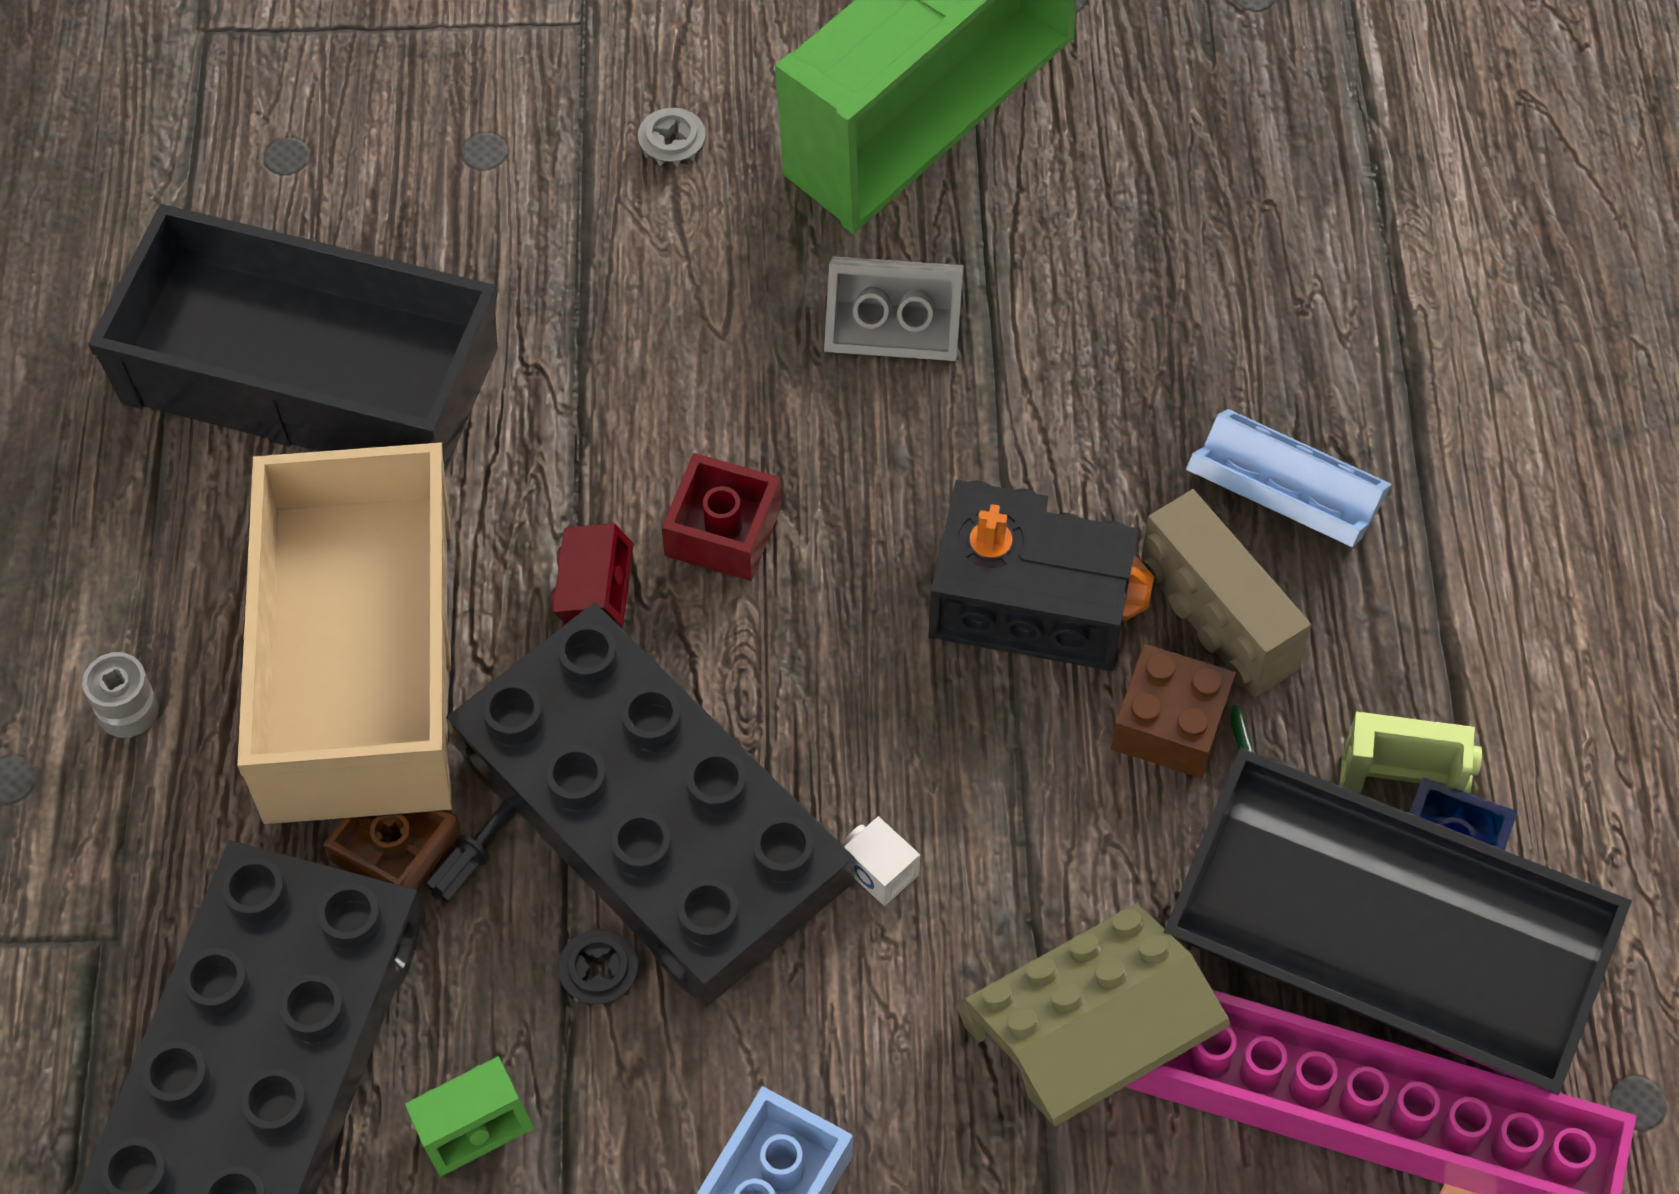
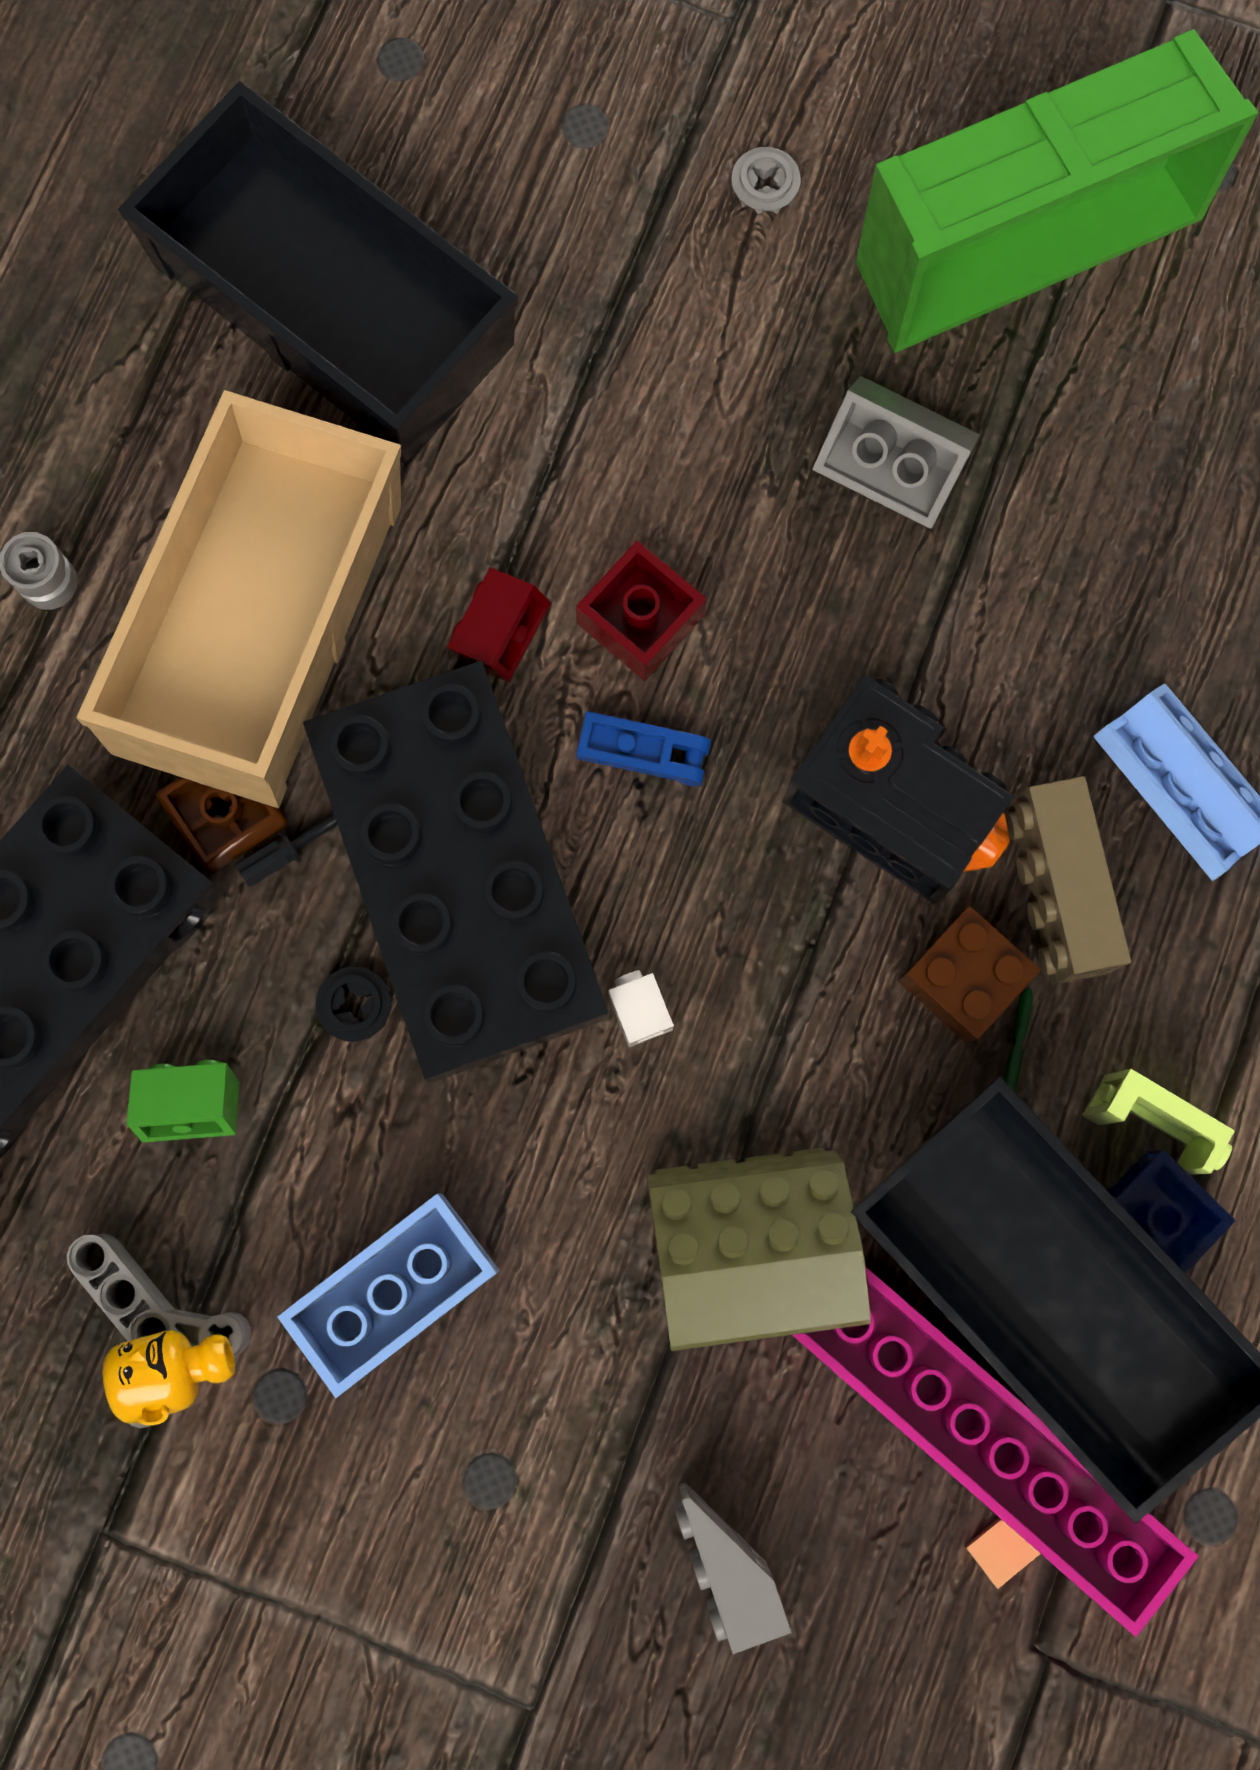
camera: 20 degrees right, 20 degrees up
(777, 636) = (642, 748): none -> blue plate

